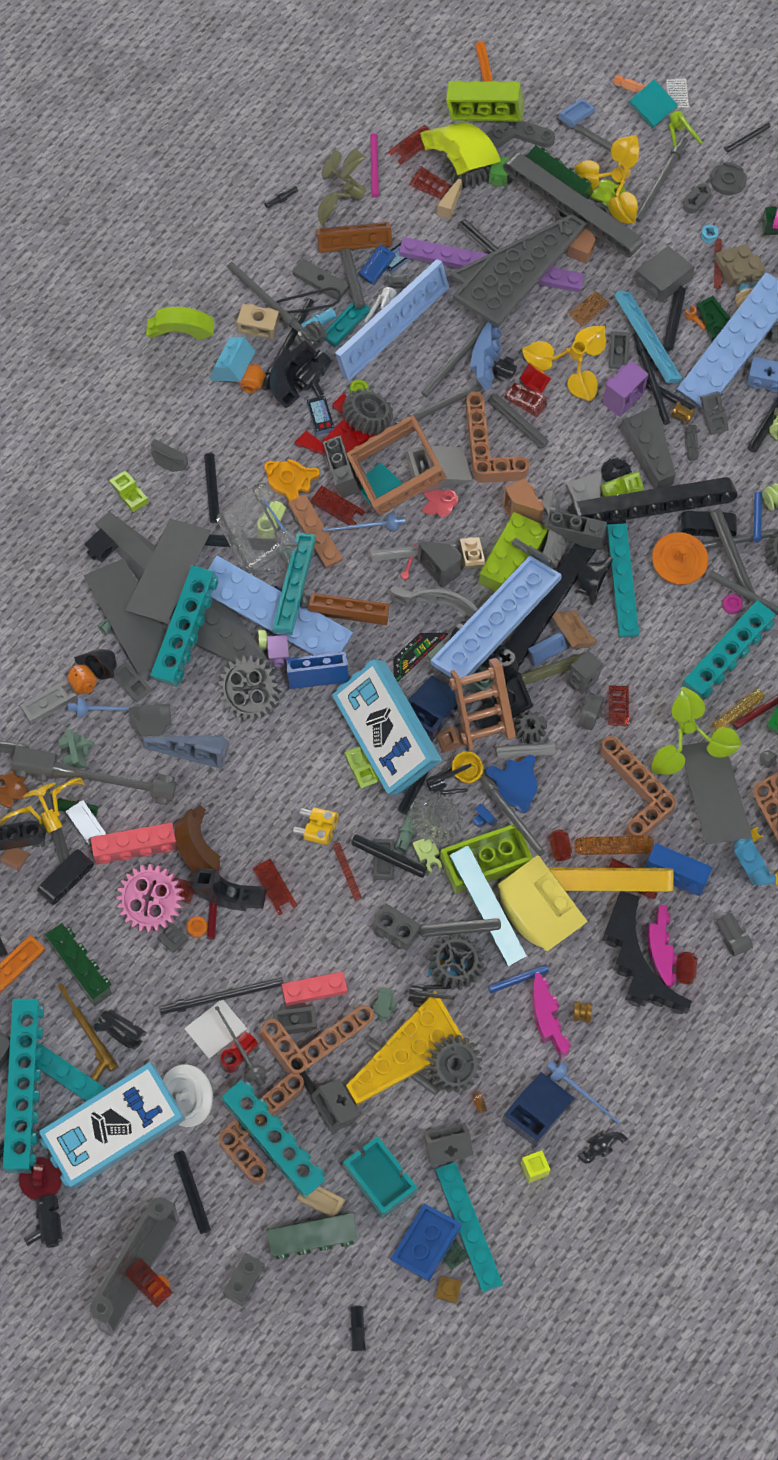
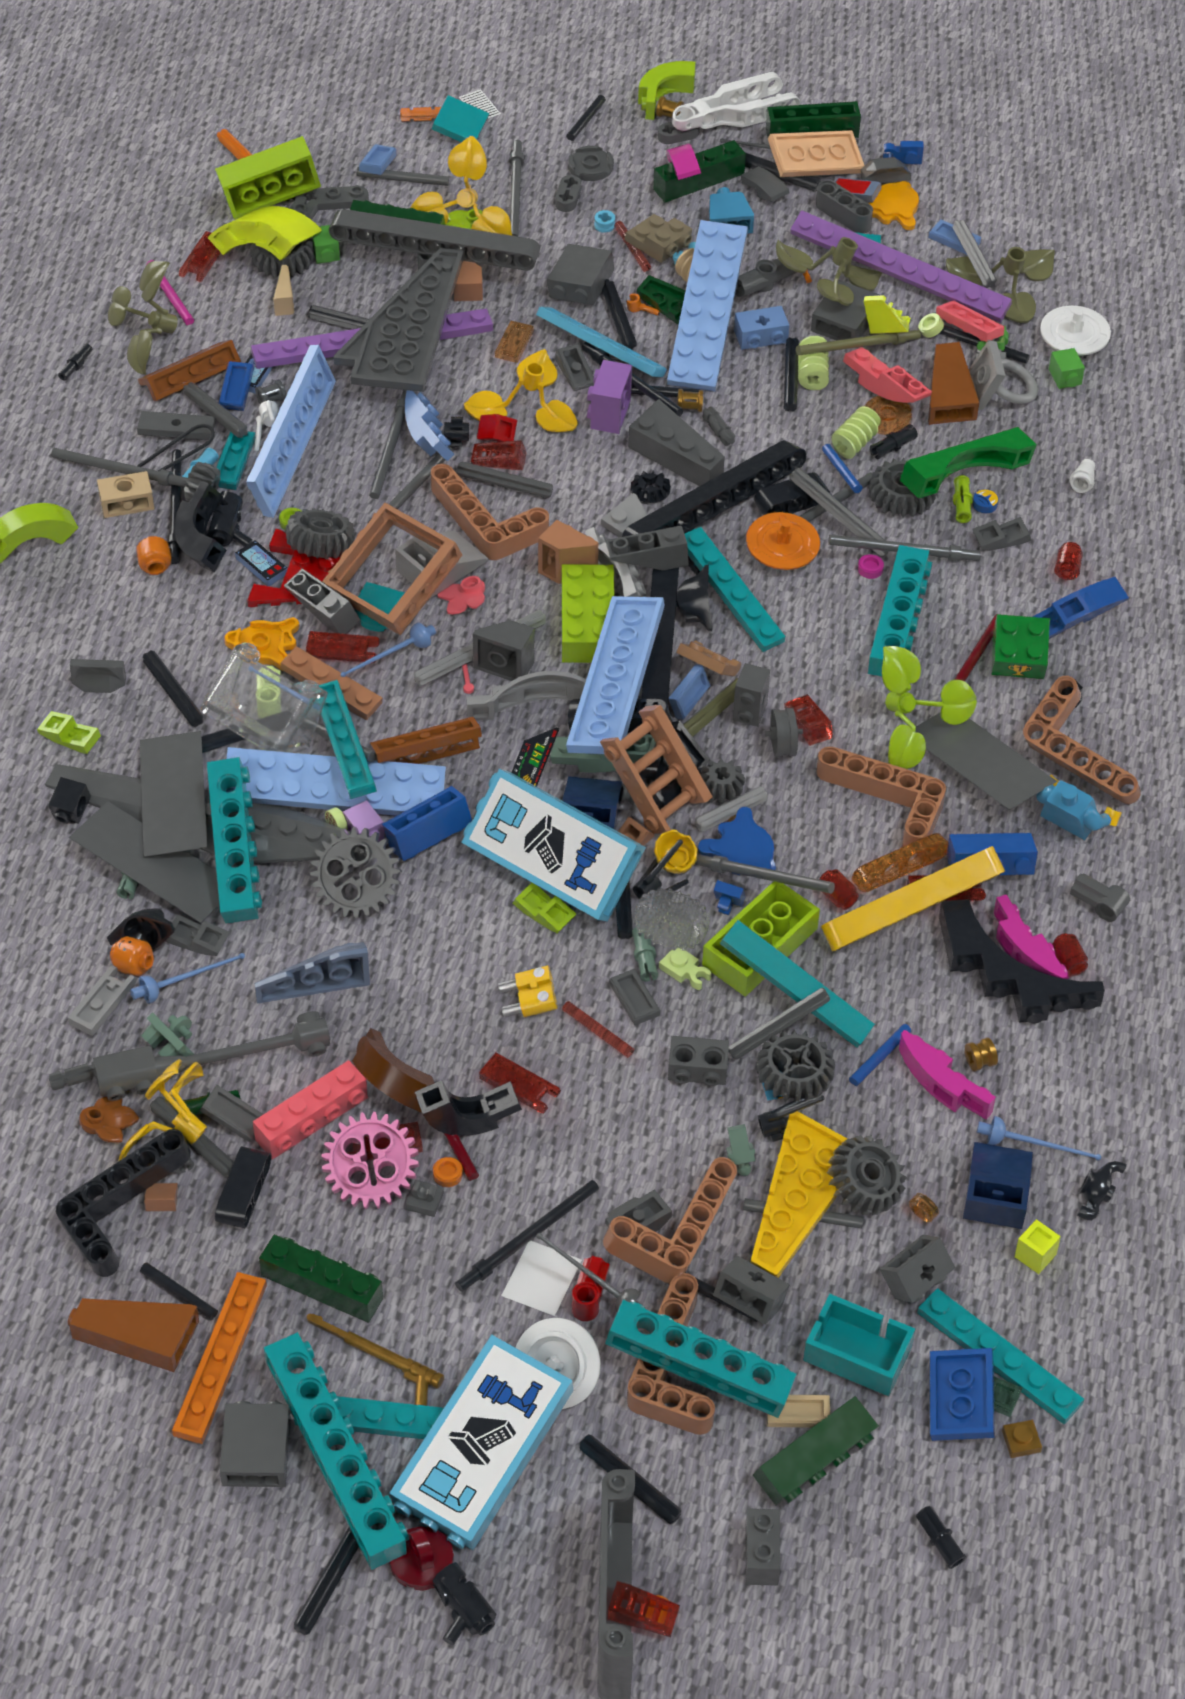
camera: 25 degrees left, 15 degrees down
(120, 1029) = (420, 1327): black piece -> none
(150, 719) = (246, 963): dark grey slope -> none
(233, 360) = (120, 541): medium azure slope -> none
(314, 988) = (639, 1175): coral plate -> none
(389, 856) = (641, 985): black axle -> none
(427, 188) = (239, 286): clear red slope -> none
(471, 553) = (546, 626): tan slope -> none
(531, 551) = (613, 589): dark grey piece -> none
(539, 905) = (858, 958): light yellow slope -> none
(624, 484) = (670, 491): lime slope -> none
(679, 122) = (500, 128): lime plant -> none
(713, 413) = (726, 389): dark grey slope -> none
(744, 705) = (953, 660): clear yellow pin -> none
(768, 758) = (1015, 701): dark grey hinge -> none

